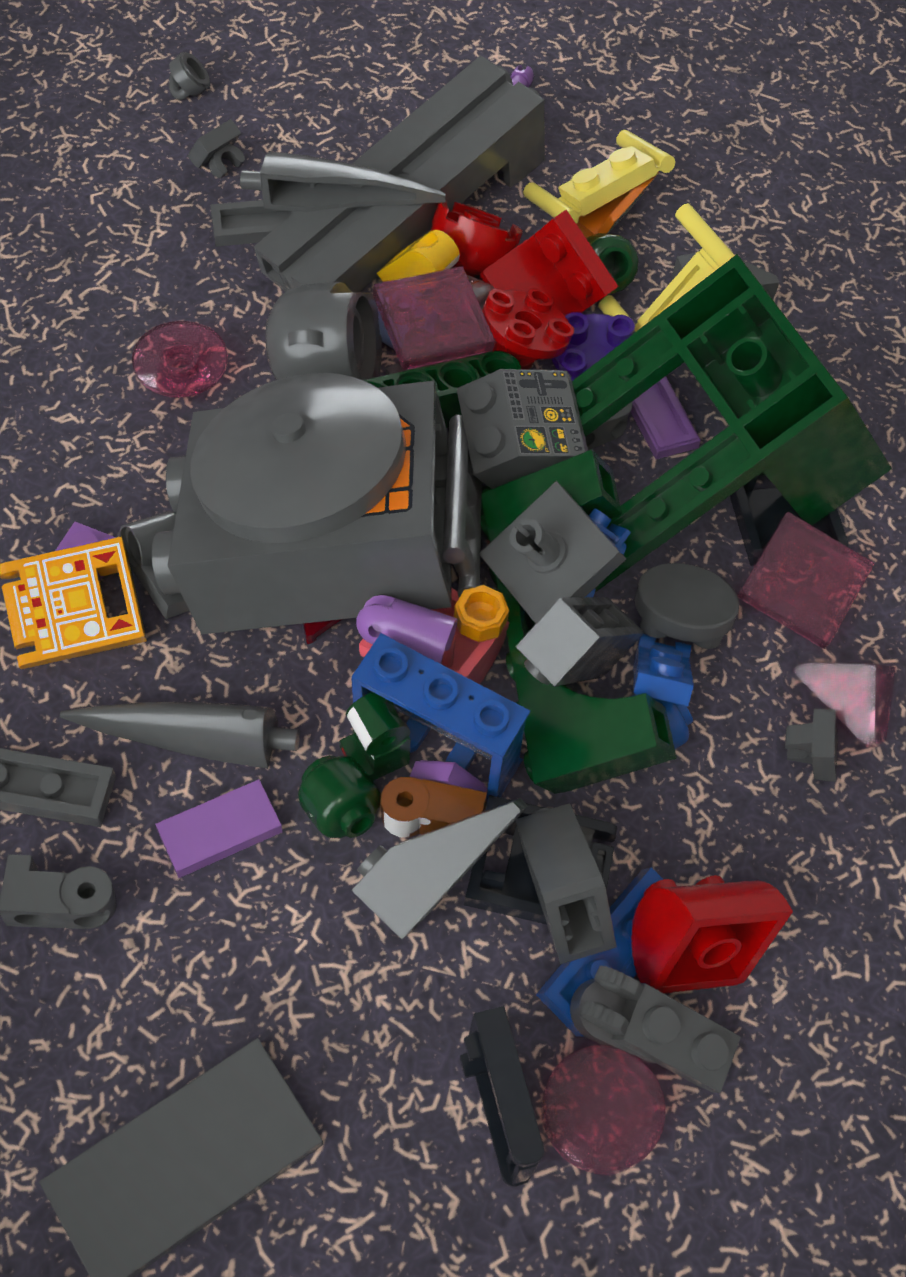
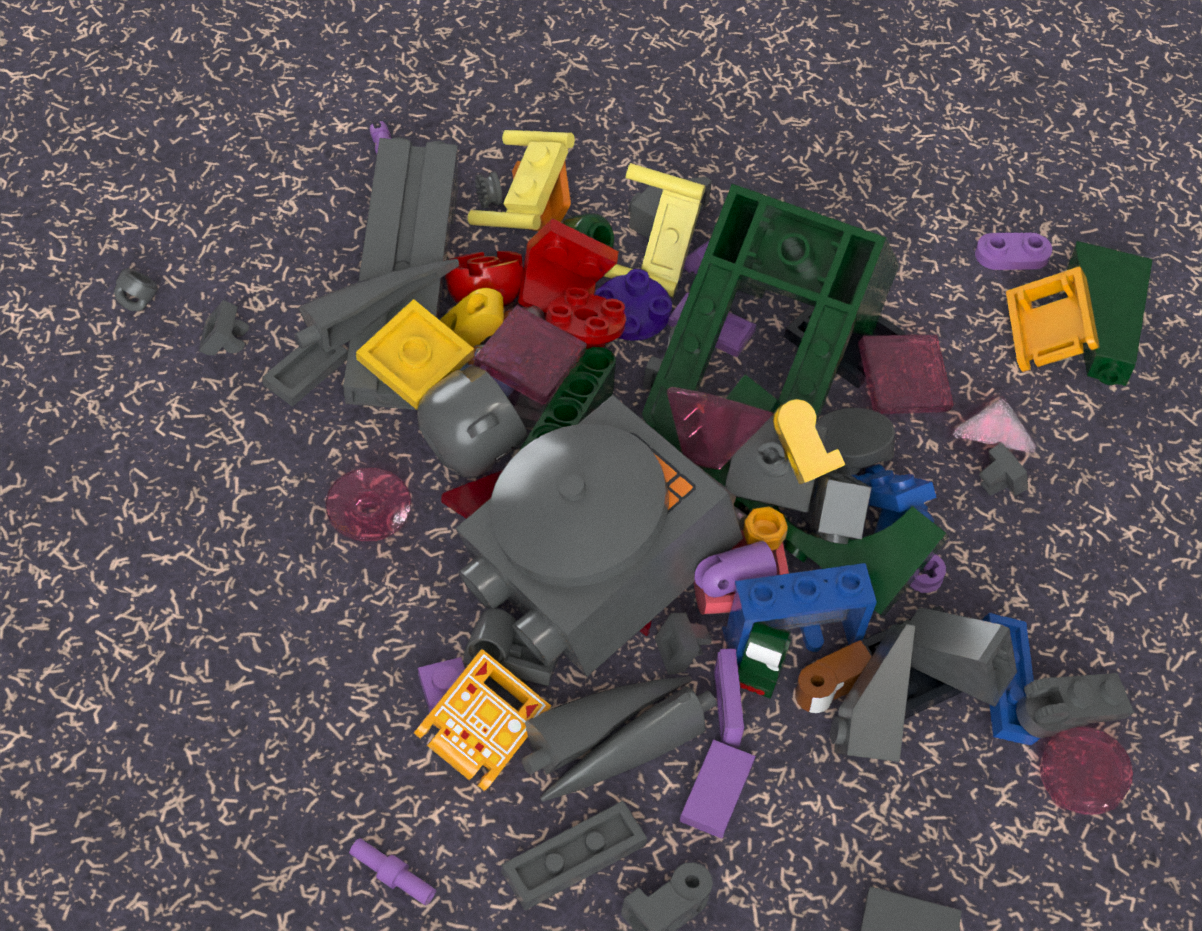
camera: 40 degrees left, 5 degrees down
(146, 671) = (579, 725): none -> dark grey piece
(316, 742) = (728, 698): none -> medium lavender tile
(323, 670) = (680, 642): none -> dark grey tile
(331, 247) = (414, 352): none -> yellow plate
(339, 797) = (774, 711): dark green head -> none
(446, 773) = (818, 650): medium lavender tile -> none
(504, 1095) = (1042, 801): black container -> none
(512, 475) = (712, 426): none -> clear pink slope
(520, 423) = (652, 372): dark grey slope -> none
(565, 170) = (489, 189): none -> dark grey bush
(572, 545) = (799, 438): none -> yellow leg
(623, 793) = (924, 583): none -> medium lavender bush
(704, 932) = (1053, 624): red brick -> none

